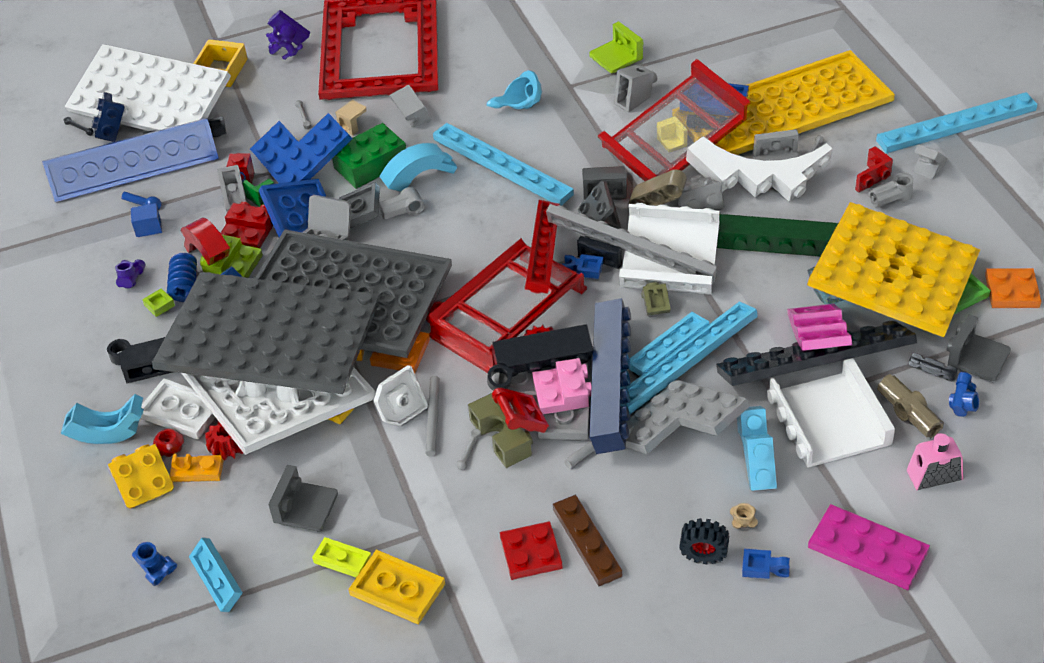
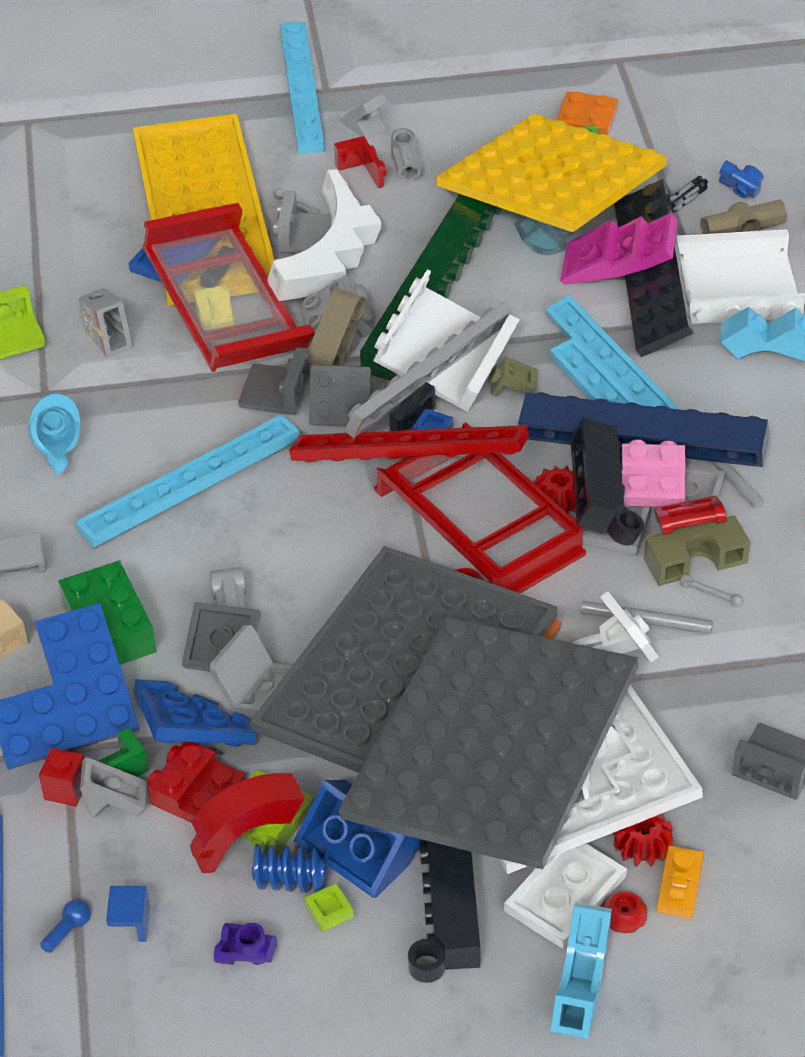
camera: 80 degrees left, 0 degrees up
(141, 475) = (680, 940): yellow bracket -> none
(413, 161) = (167, 564): medium azure arch -> none
(685, 406) = (715, 371): light grey plate -> none
(976, 353) = (684, 157): dark grey bracket -> none

